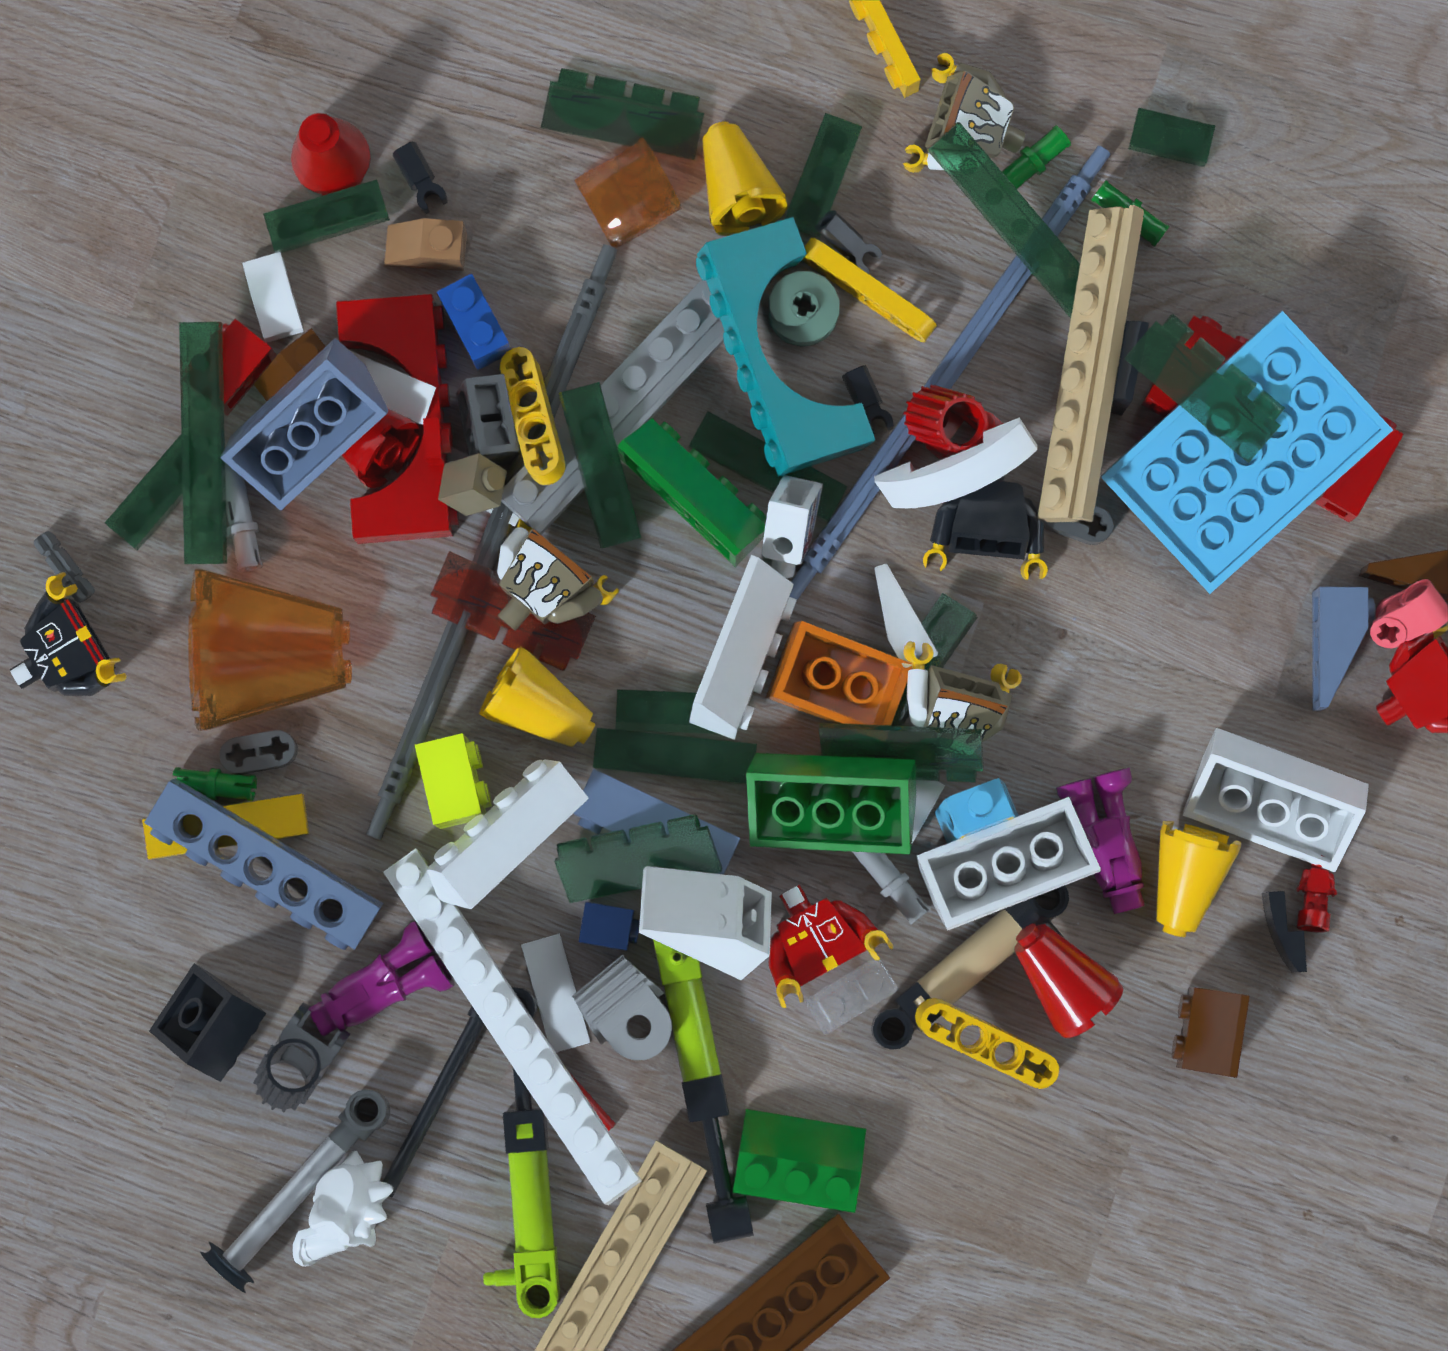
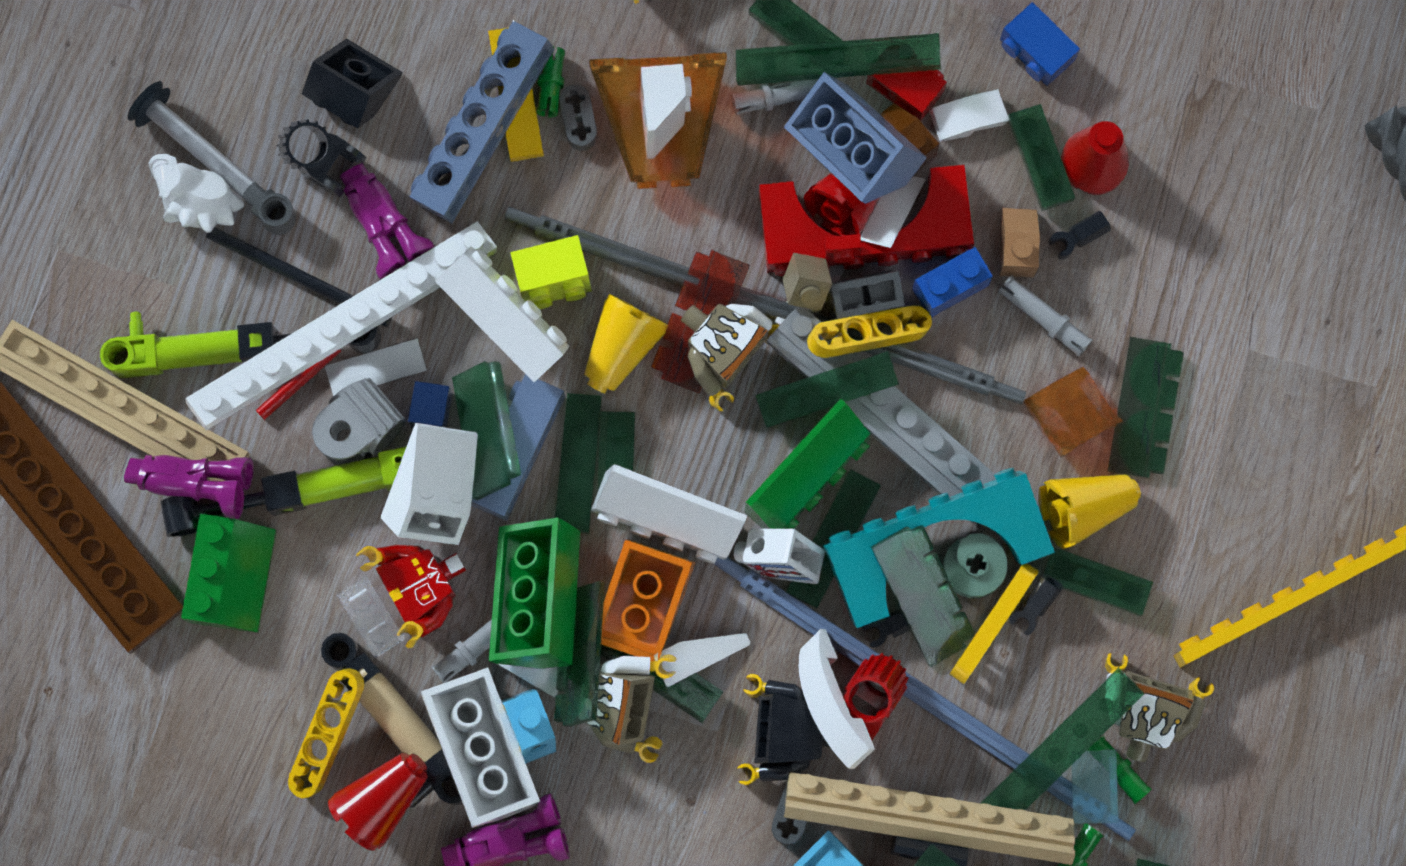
camera: 90 degrees right, 5 degrees down
(190, 213) = (1039, 44): none -> blue brick
(252, 648) = (663, 101): none -> white slope
(527, 206) = (1044, 315): none -> light grey pin
(690, 1206) = (191, 478): none -> magenta piece
(836, 363) = (920, 599): none -> windscreen
(1057, 182) = (1095, 787): none -> clear light blue panel

